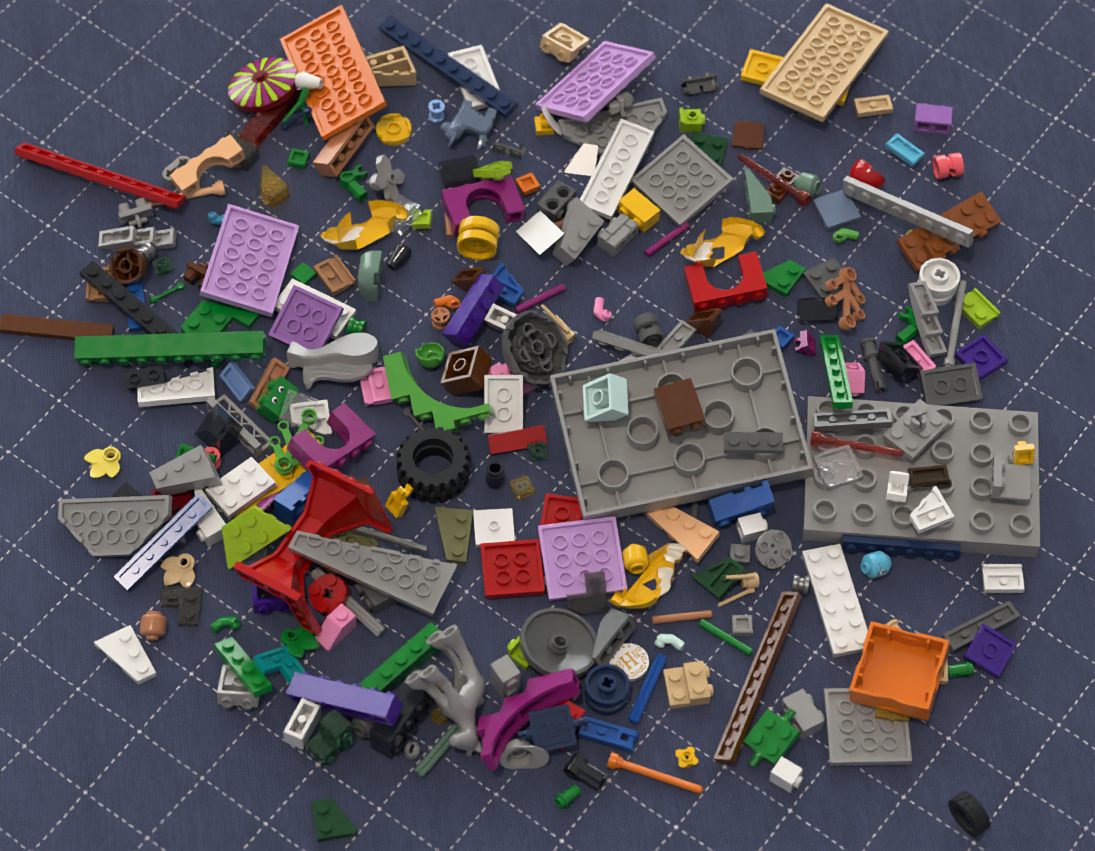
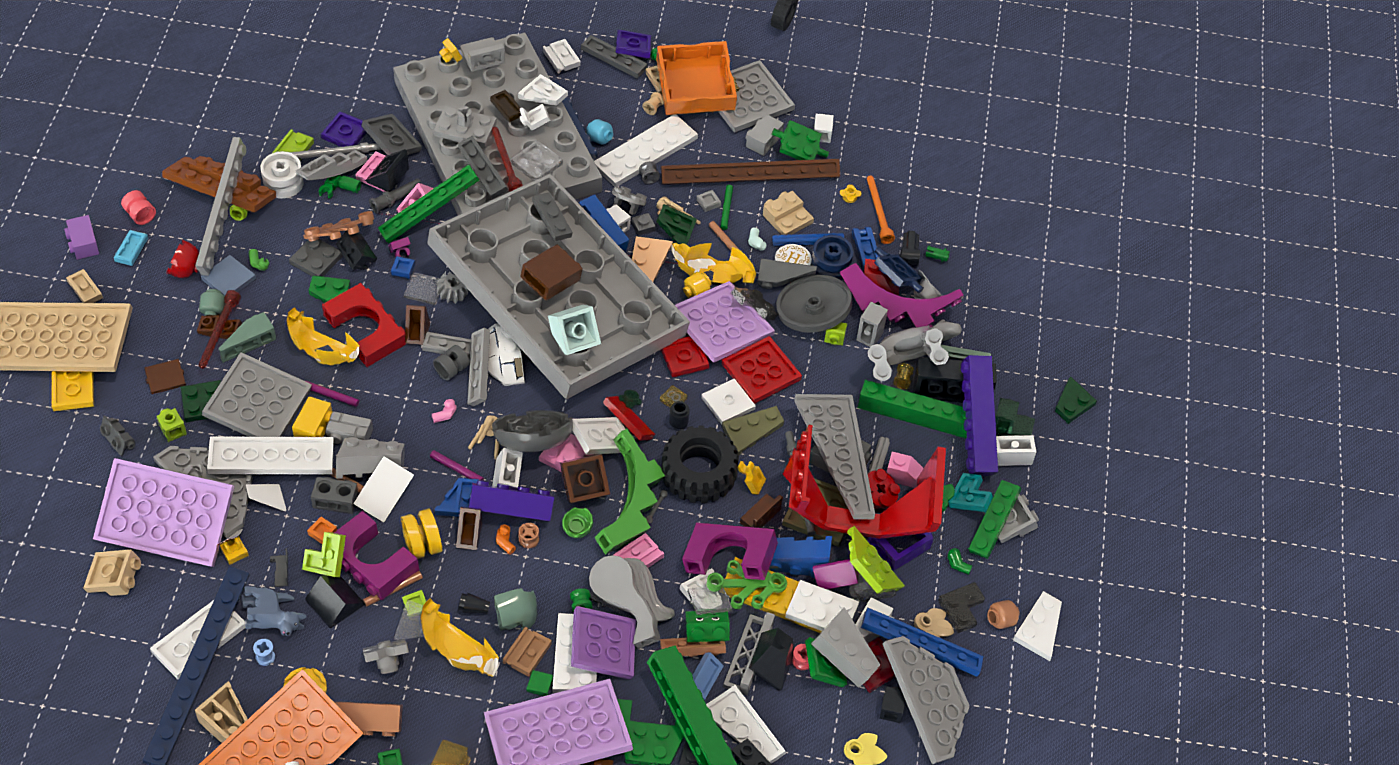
camera: 120 degrees left, 5 degrees down
(349, 180) = (398, 695): green bar -> none

